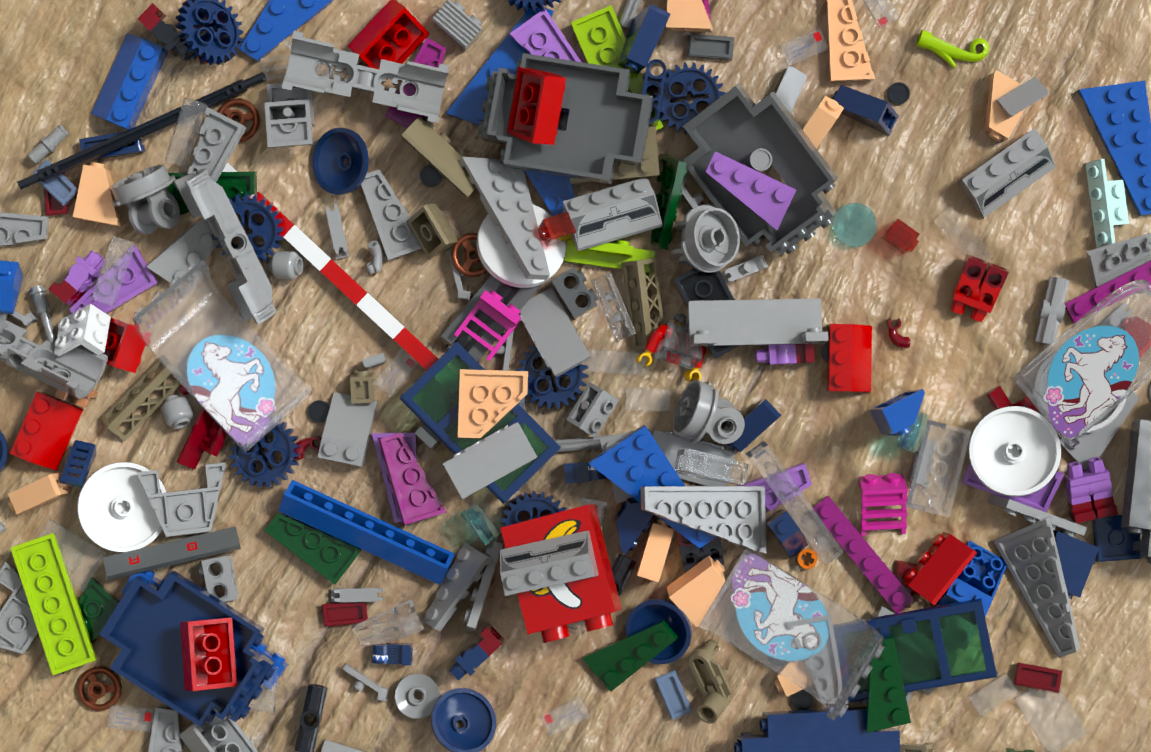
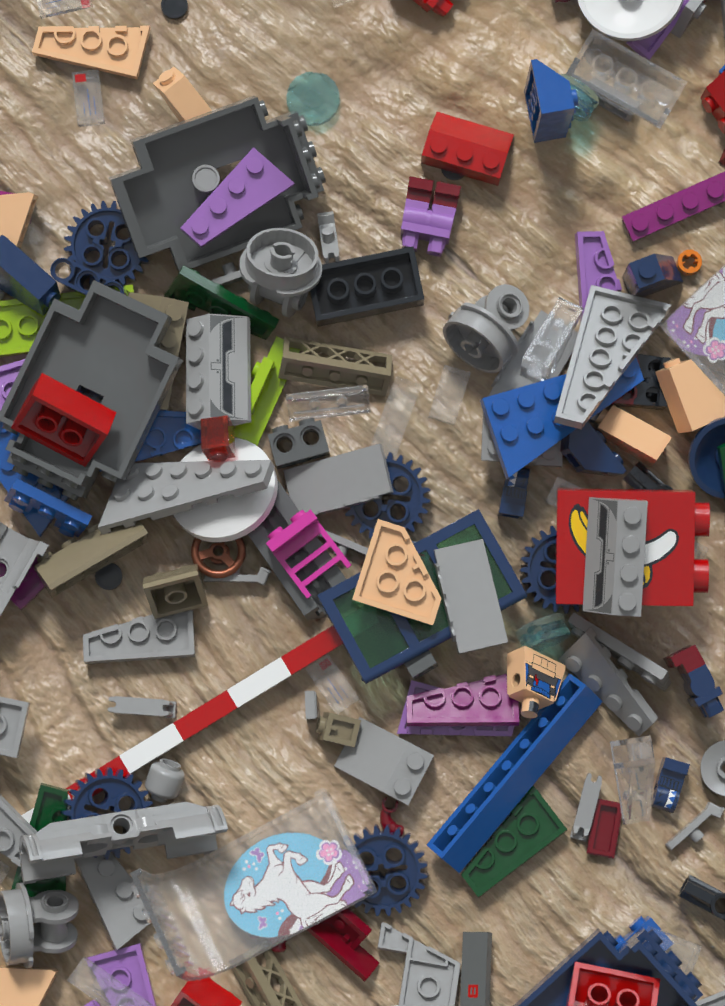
camera: 80 degrees left, 5 degrees down
(177, 412) = (304, 963): light grey head -> none
(225, 578) = (523, 962): light grey brick -> none
(318, 411) = (352, 790): black piece -> none
(332, 158) = (58, 690): dark blue dish -> none
(377, 256) = (187, 667): light grey arm -> none
(440, 526) = (533, 679): none -> light nougat torso
(463, 132) = (69, 519): none -> blue plate
(580, 443) = (480, 484): light grey axle -> none
(592, 409) = (443, 461): light grey brick -> none
(671, 344) = (394, 340): clear torso -> none
(711, 47) = (55, 204): dark grey tile -> none
(755, 322) = (395, 238): light grey bracket -> none
(755, 424) = (510, 269): dark blue slope -> none
(790, 87) = (127, 123): slope -> none
(794, 502) = (617, 254): clear brick -> none
(866, 109) = (182, 44): dark blue slope -> none
(883, 491) = (634, 153): dark pink plate -> none
(897, 339) = (462, 86): dark red arm -> none
(901, 236) = (342, 47): clear red brick -> none

